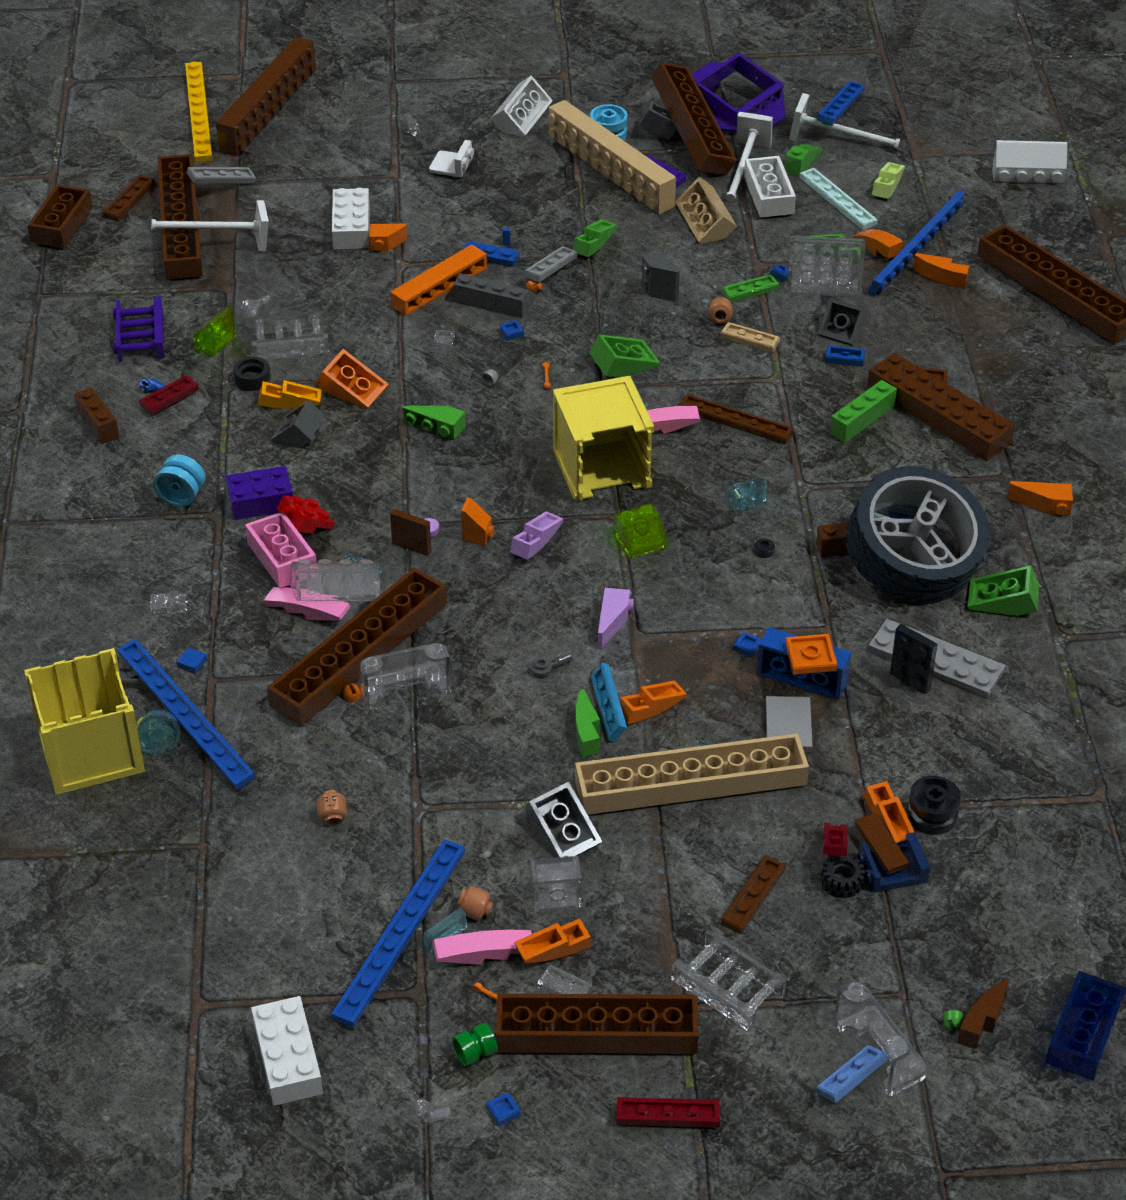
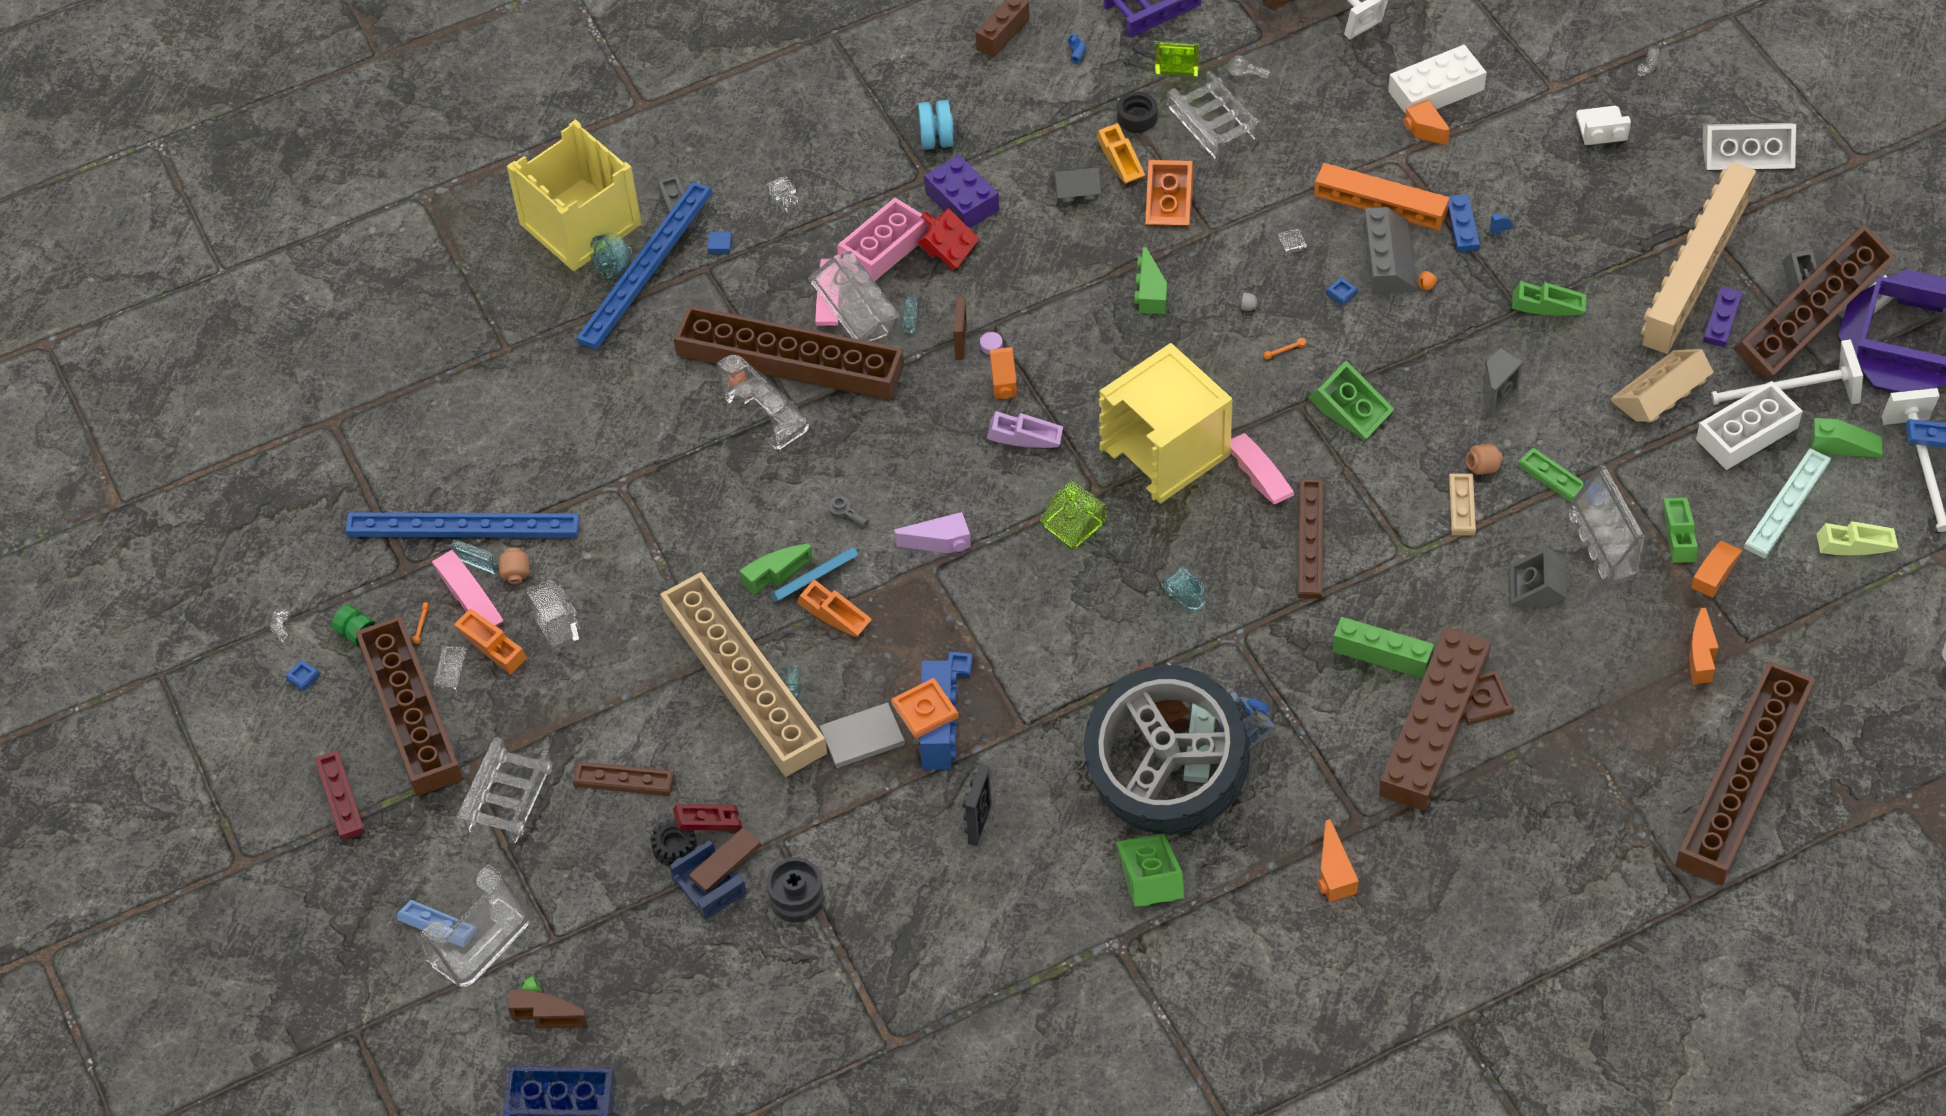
camera: 70 degrees right, 10 degrees up
(168, 394) = (1068, 64): dark red plate -> none
(287, 1050) = (298, 498): white brick -> none
(331, 808) = (580, 417): nougat head -> none
(550, 264) = (1469, 279): light grey tile -> none
(562, 822) = (637, 596): dark grey slope -> none
(612, 118) = (1768, 233): medium azure wheel -> none
(764, 548) = (1113, 631): black tile -> none
(845, 355) = (1475, 606): blue tile -> none
(889, 810) = (784, 845): orange slope -> none
(916, 243) = (1752, 608): blue plate -> none
(952, 662) = (1022, 837): light grey plate -> none

